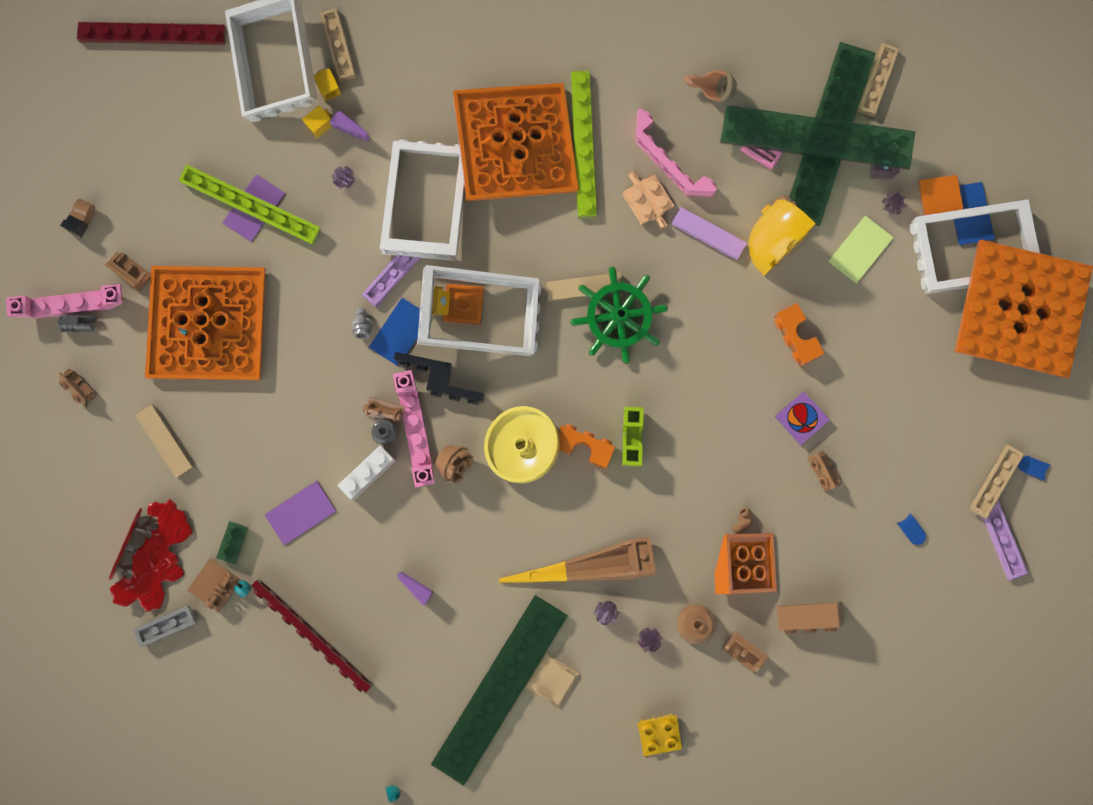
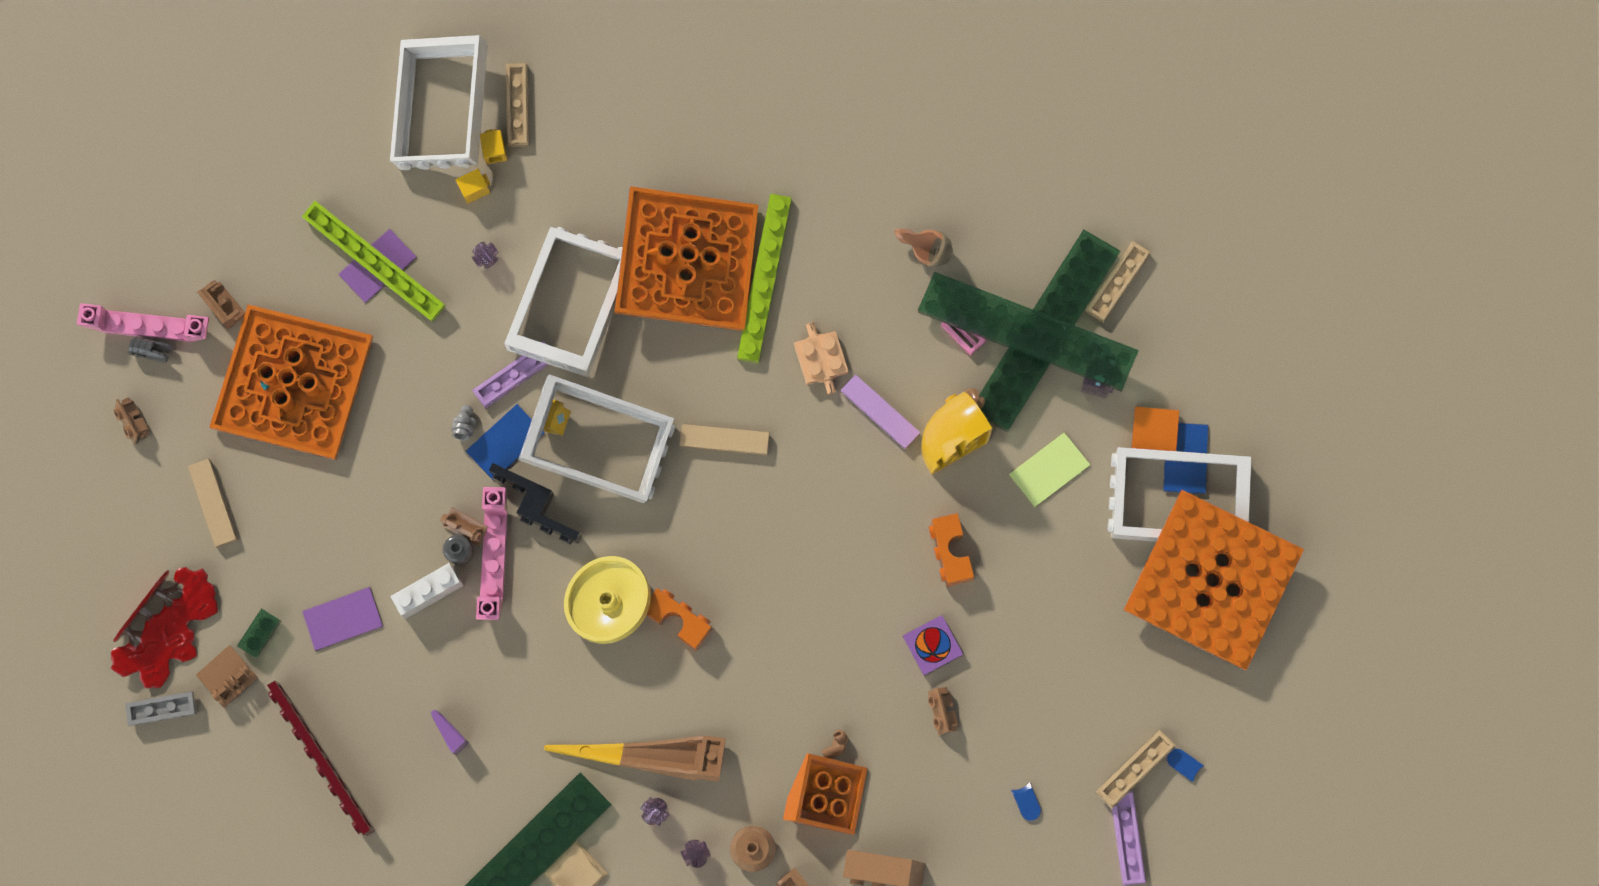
camera: 15 degrees right, 5 degrees down
(79, 217) = (182, 232): leg -> none
(151, 33) = (314, 45): dark red plate -> none
(243, 588) = (257, 687): teal hinge -> none
(345, 124) = (501, 195): medium lavender slope -> none
(453, 462) = (526, 601): medium nougat cone -> none
(464, 304) = (585, 428): orange tile -> none
(619, 315) = (754, 480): green piece -> none
(632, 436) = (734, 620): lime arch -> none
(703, 187) = (883, 358): bright pink slope -> none
(889, 204) = (1093, 422): gear -> none

